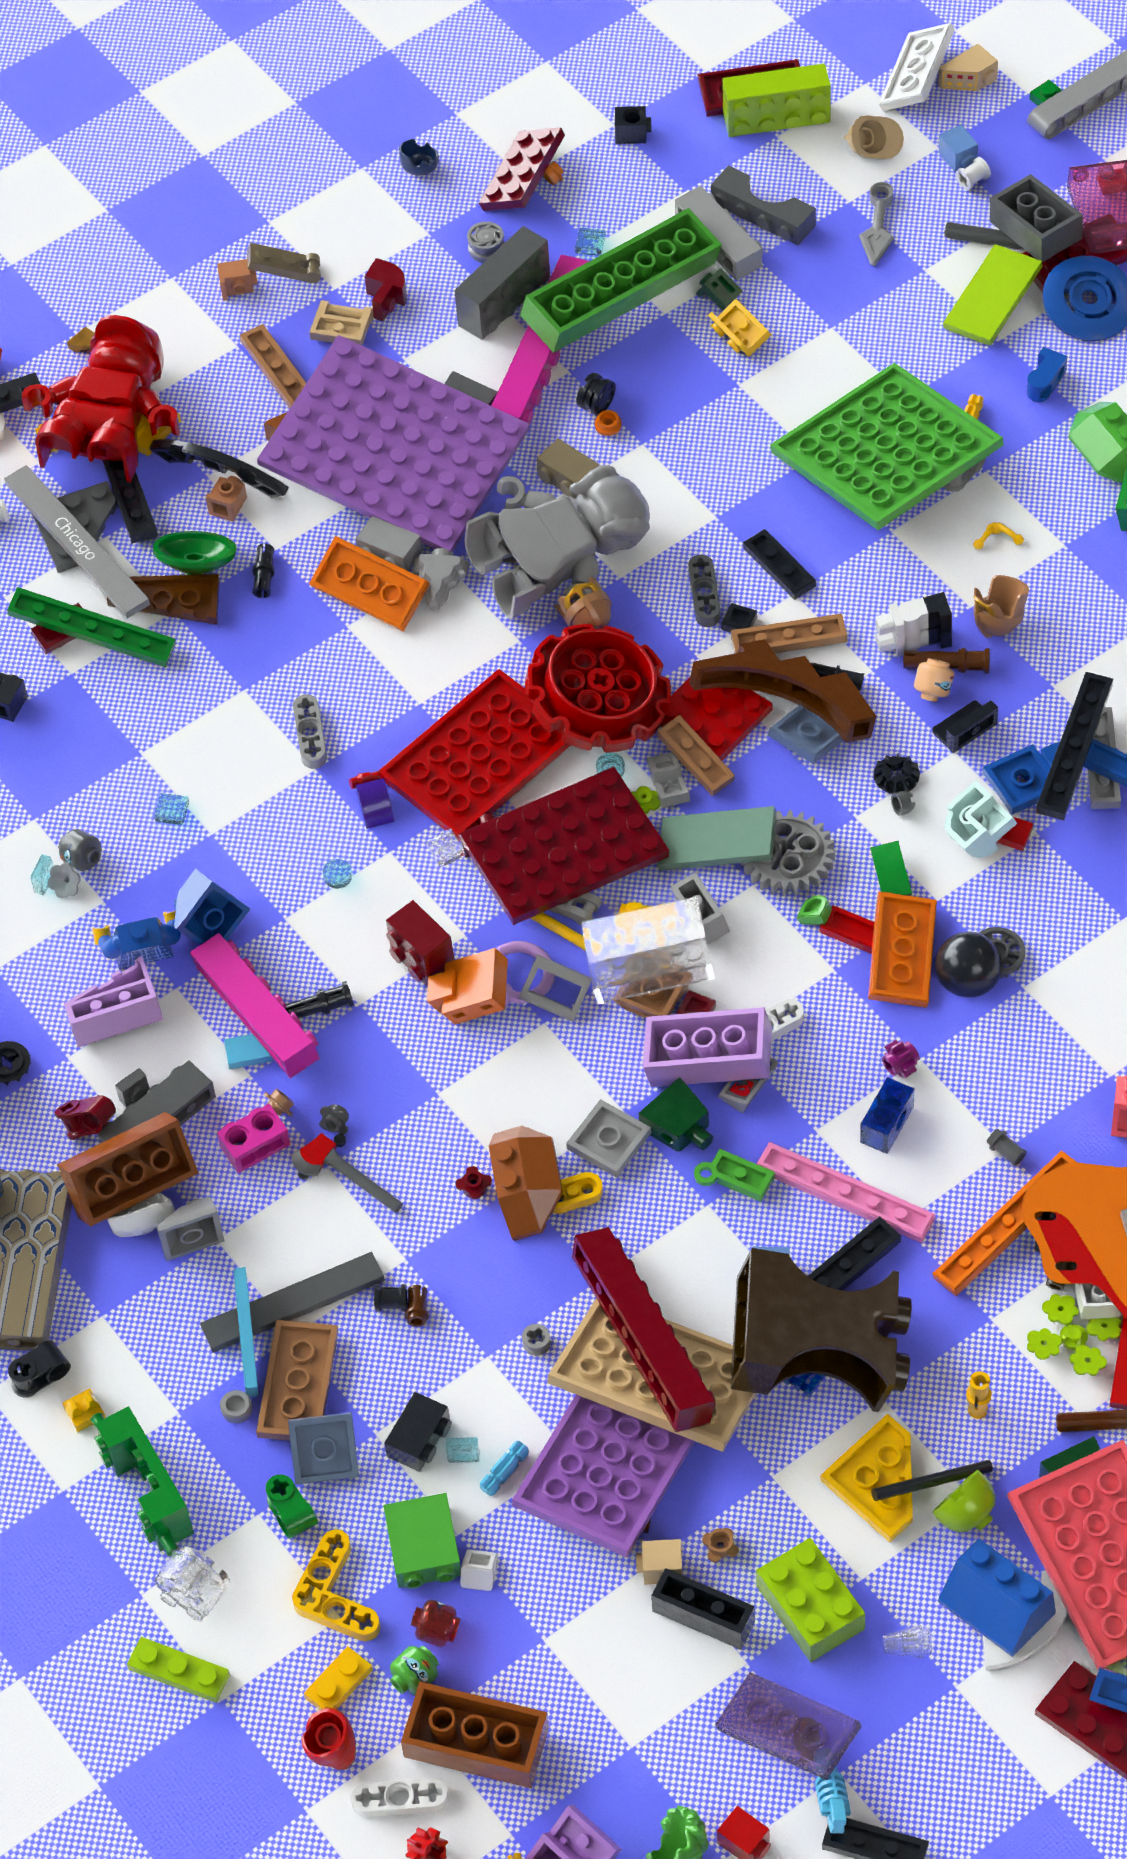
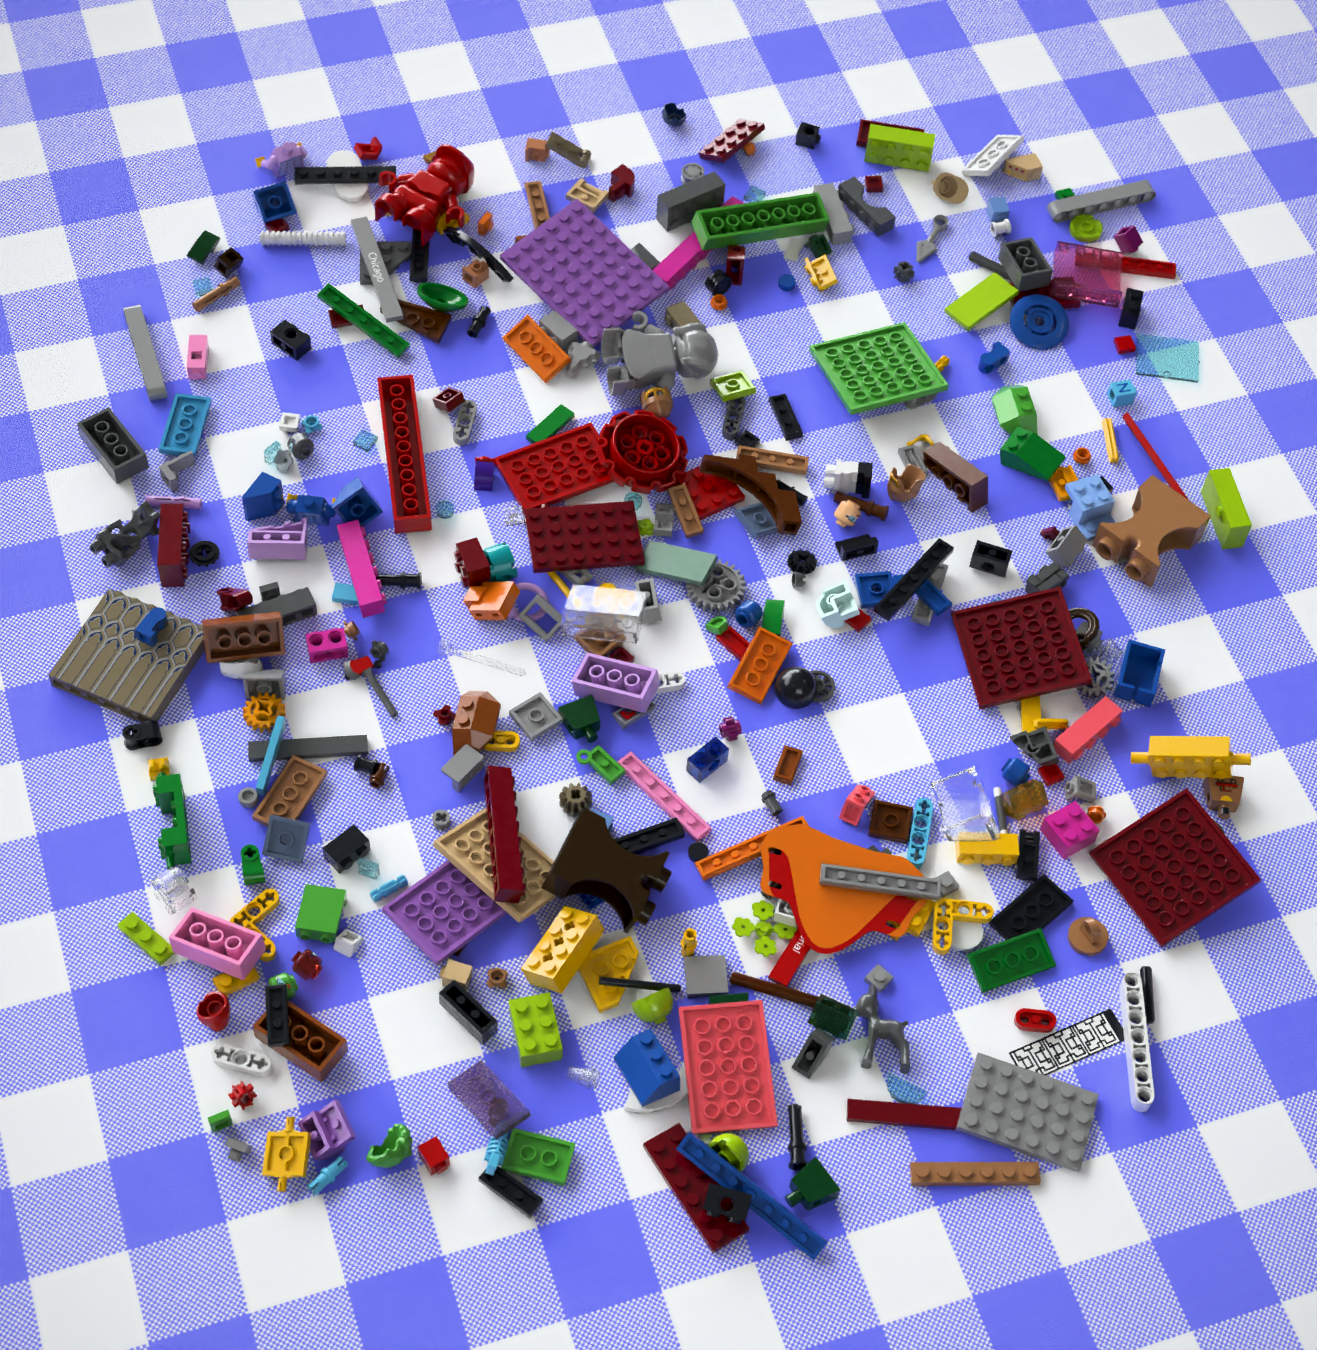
camera: 10 degrees right, 0 degrees up
(47, 819) = (289, 422): none -> white plate
(62, 947) = (263, 497): none -> blue slope
(78, 805) = (311, 424): none -> medium azure plate
(204, 1270) = (264, 711): none -> light orange gear
(208, 417) = (485, 224): none -> orange plate
(243, 810) = (404, 454): none -> red brick
(271, 705) = (448, 399): none -> dark red piece
(292, 1638) = (217, 943): none -> bright pink brick
(431, 1713) = (277, 1015): none -> black tile
(432, 1081) = (445, 648): none -> clear piece
(439, 692) = (551, 424): none -> green tile
(462, 923) = (500, 562): none -> teal brick
(536, 1249) = (463, 767): none -> light grey panel
(608, 347) = (735, 259): none -> dark red torso
(682, 305) = (793, 249): none -> white sticker
(683, 543) = (732, 386): none -> lime tile
(694, 359) = (786, 282): none -> blue tile
(720, 1251) = (575, 798): none -> dark tan gear
(758, 167) = (873, 184): none -> dark red tile
(801, 1468) = (562, 949): none -> yellow brick
(853, 878) = (748, 614): none -> blue head
(860, 287) = (903, 271): none -> dark grey gear
(895, 1782) = (538, 1156): none -> bright green plate
(930, 1256) = (697, 851): none -> black tile
(987, 570) = (916, 454): none -> light grey tile
(1004, 1083) = (787, 765): none -> dark orange tile
(1019, 1434) = (705, 975): none -> light grey tile
(1069, 567) = (957, 475): none -> wedge
(1096, 134) = (1085, 228): none -> lime tile

